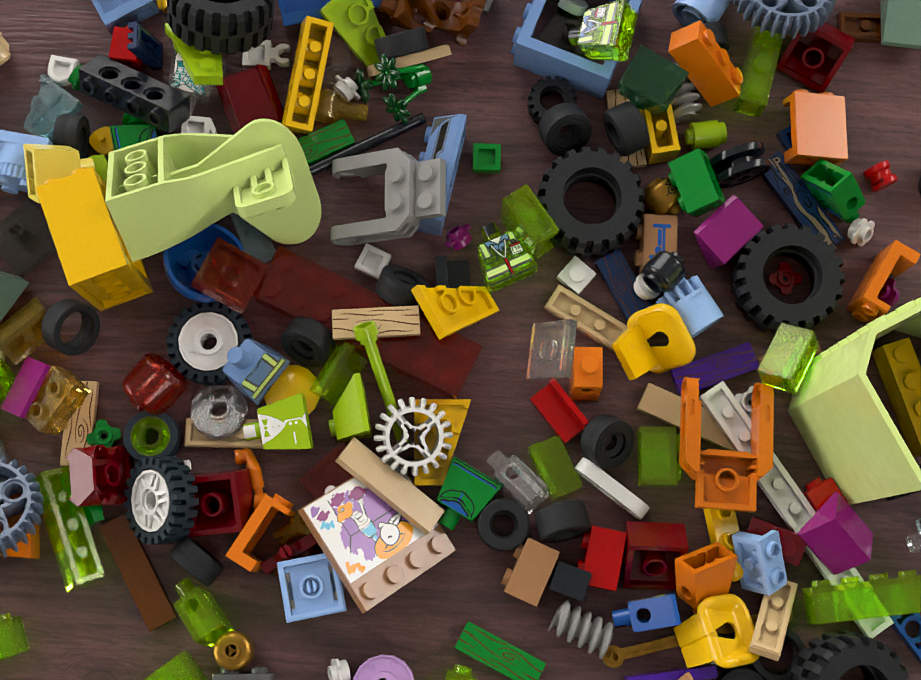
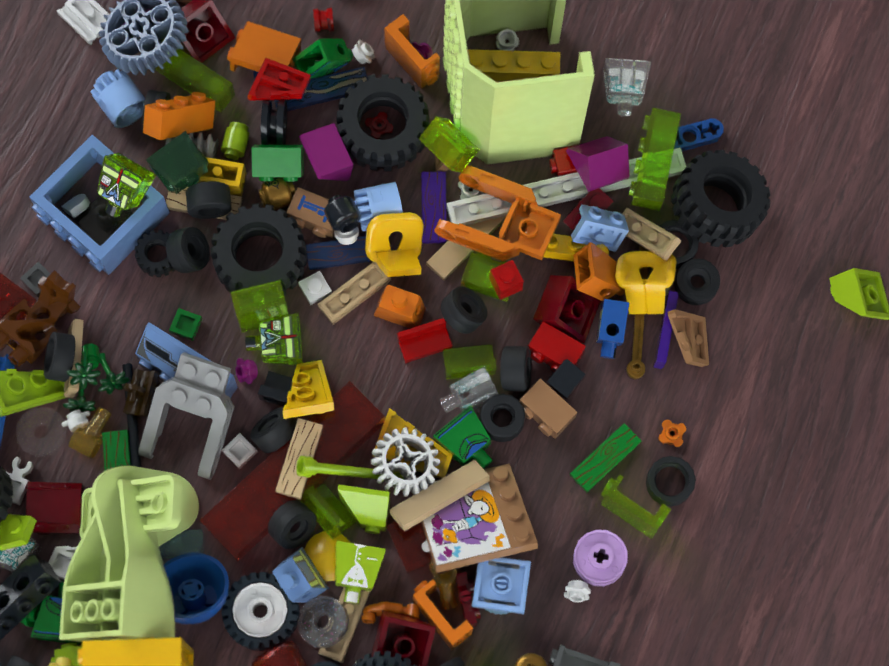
camera: 70 degrees left, 5 degrees down
(102, 141) = (37, 652): yellow piece -> none
(229, 275) = (212, 568): clear red plate -> none
(307, 75) = (54, 447): yellow brick -> none
(402, 137) = (140, 392): none -> dark brown hips
(551, 350) = (372, 327): clear tile -> none
(582, 628) = (605, 382): light grey piece -> none
(611, 488) = (502, 322): white beam -> none
(656, 475) = (506, 279): none -> red brick
(785, 150) = (278, 82): none -> red wing

